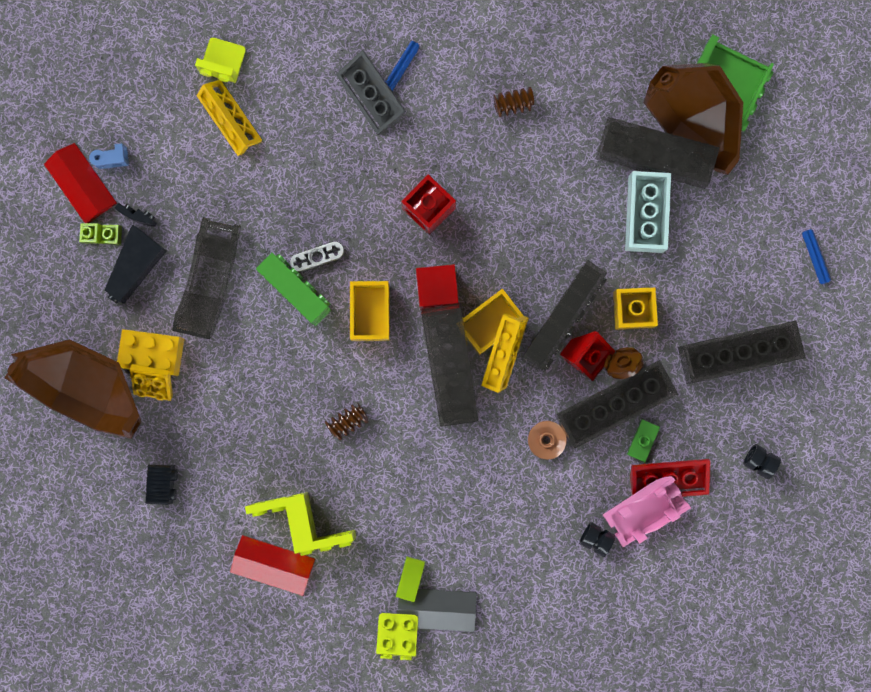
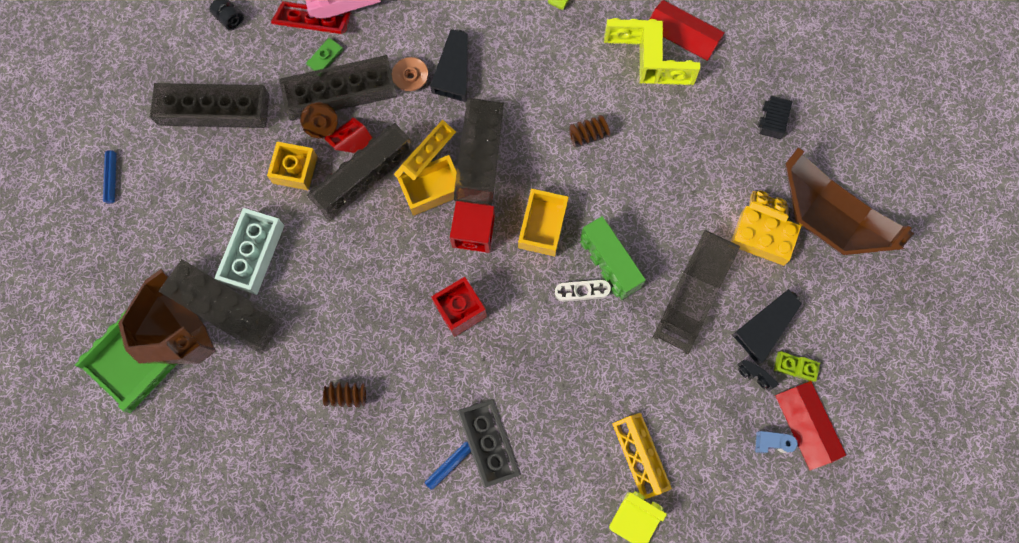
camera: 165 degrees left, 10 degrees down
(503, 452) = (452, 69): none -> black slope

